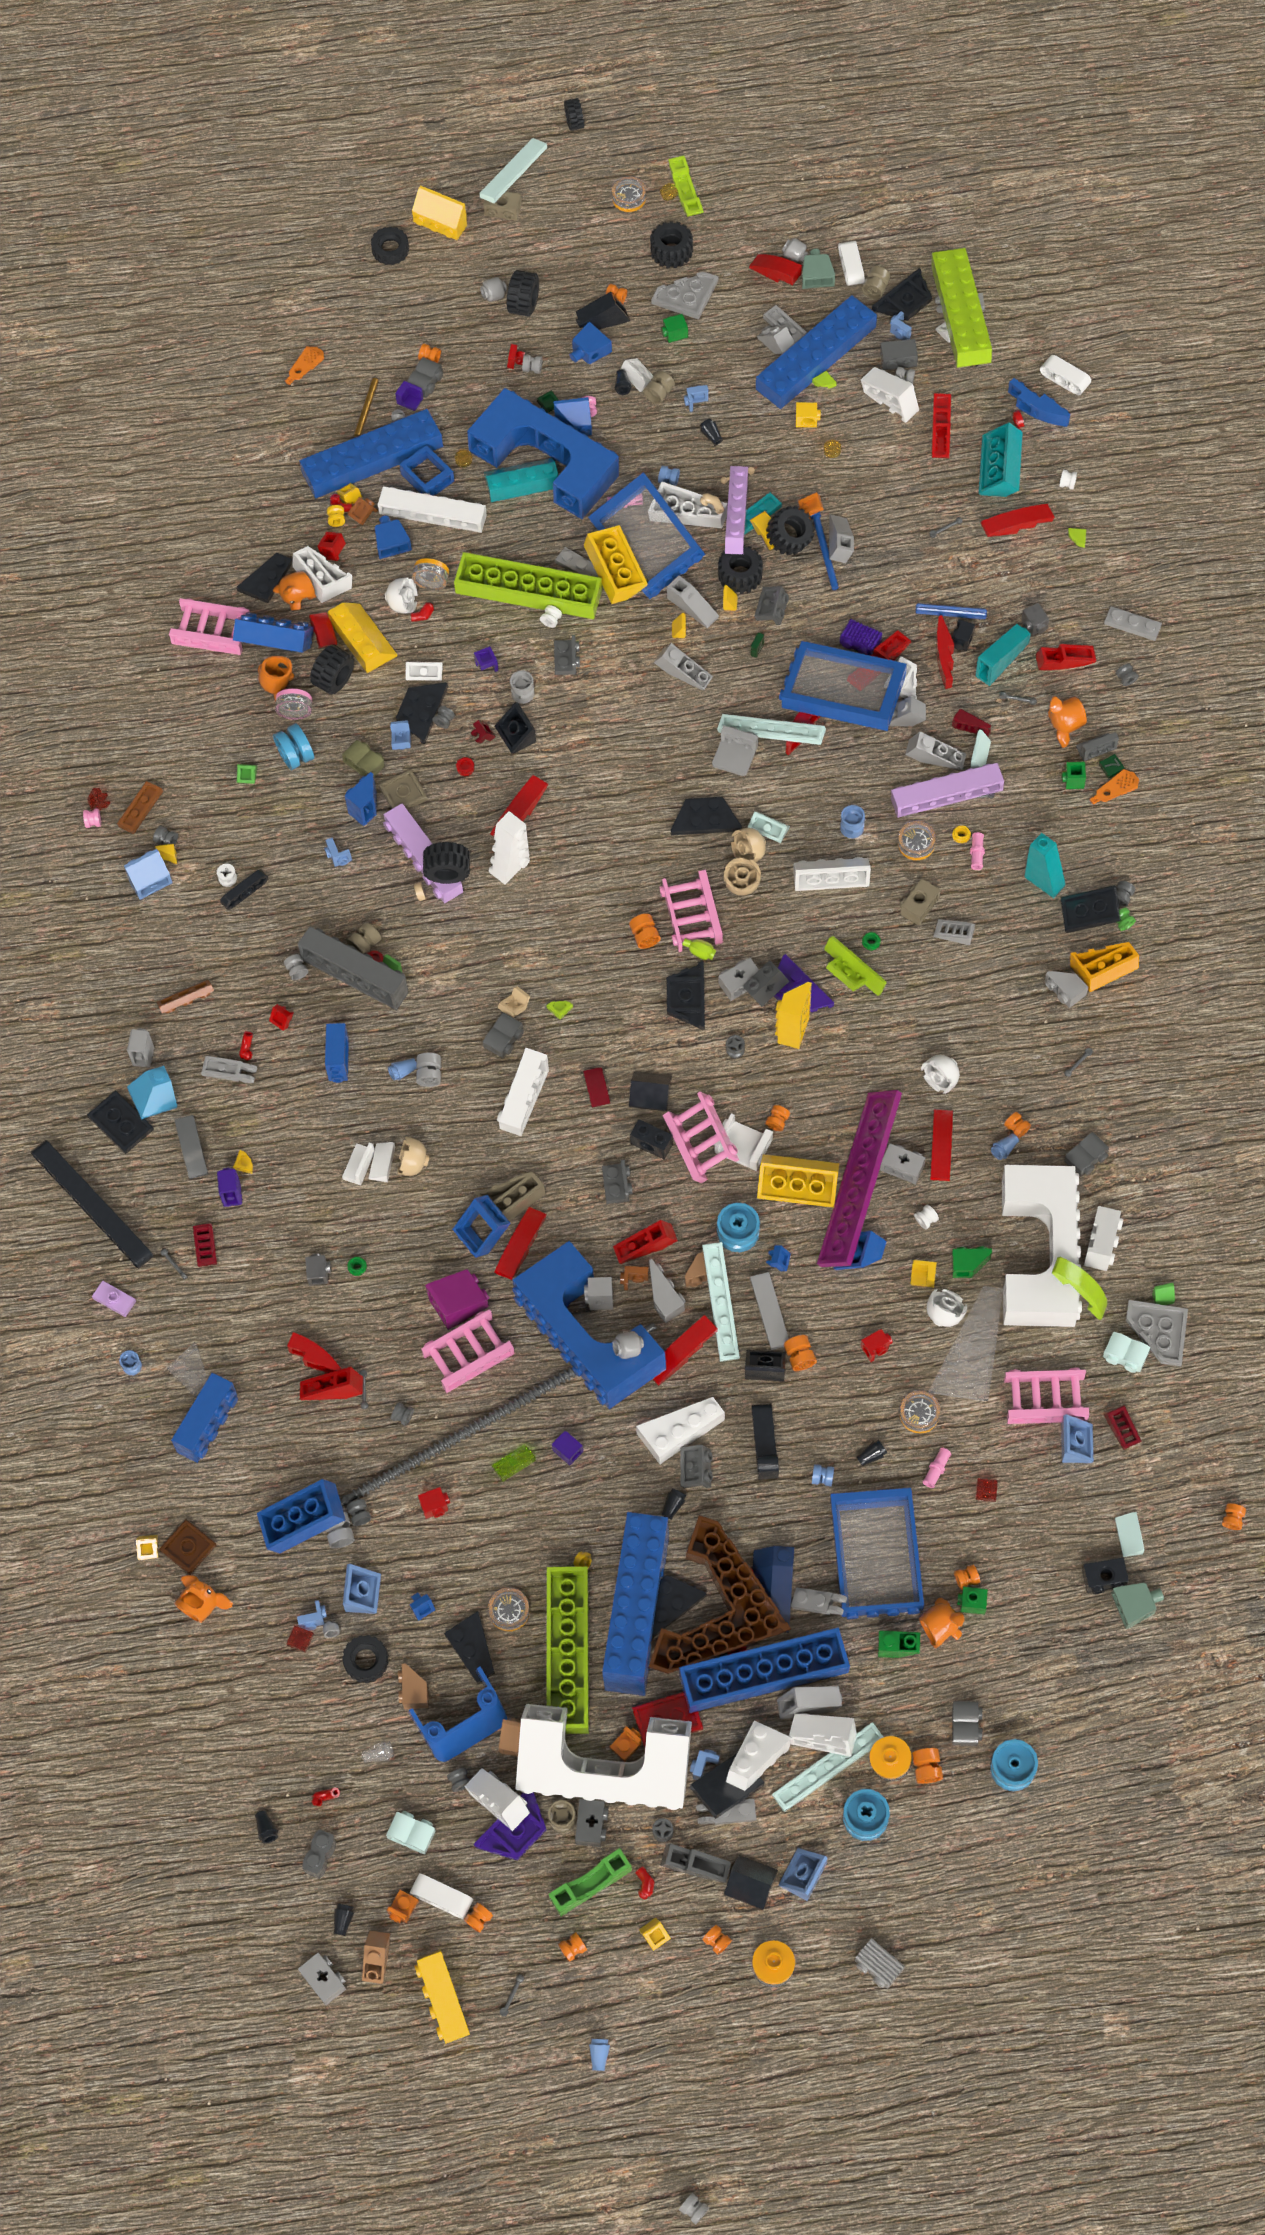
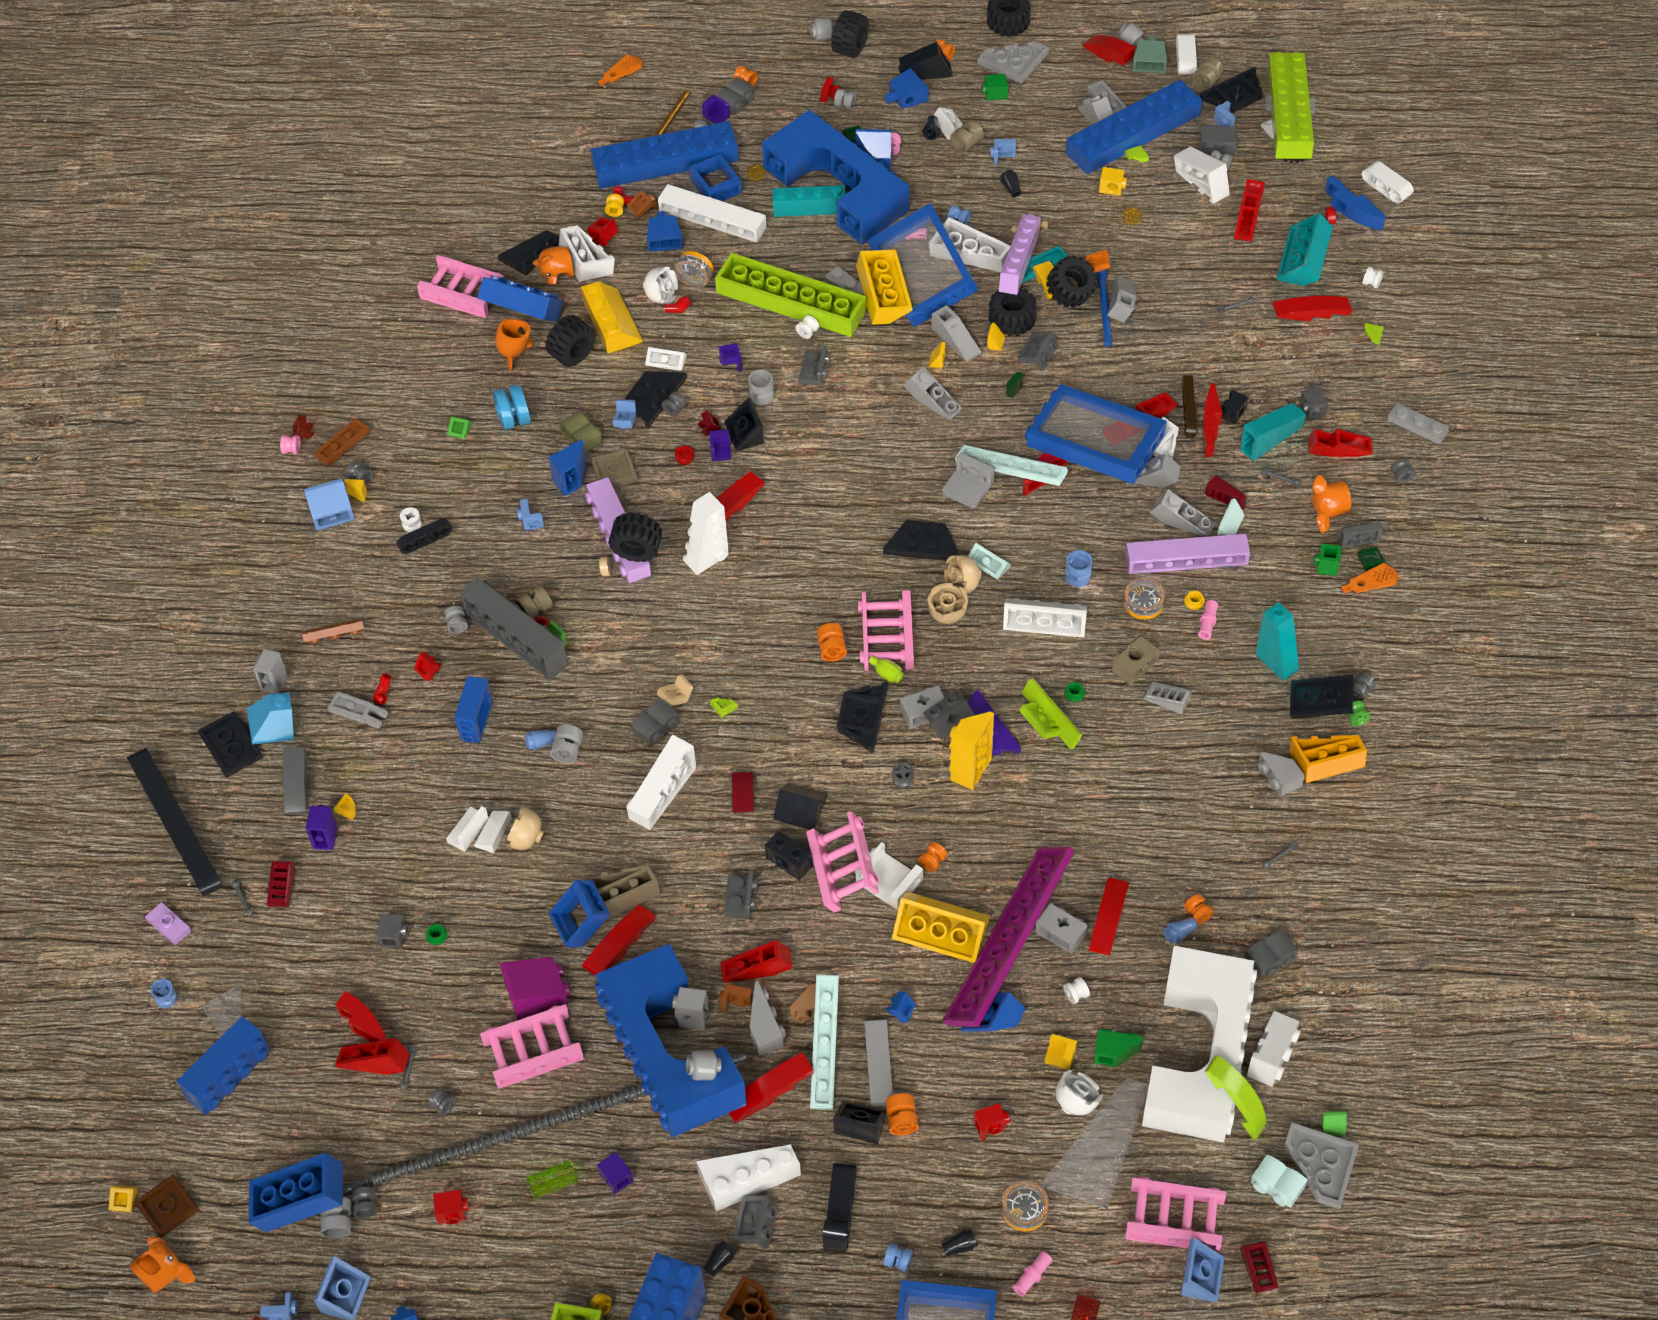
camera: 10 degrees right, 10 degrees down
(293, 704) = (523, 367): clear piece -> none
(323, 630) = (573, 303): red slope -> none
(349, 493) = (633, 188): yellow slope -> none
(496, 752) = (720, 445): none -> dark purple panel
(713, 500) = (997, 240): tan arm -> none
(738, 1227) = (862, 965): dark azure wheel -> none
(860, 637) = (1124, 392): dark purple brick -> none
(921, 641) = (1188, 406): none -> dark brown beam
(941, 1073) = (1123, 838): white cylinder -> none
(951, 611) = (1227, 383): blue axle -> none

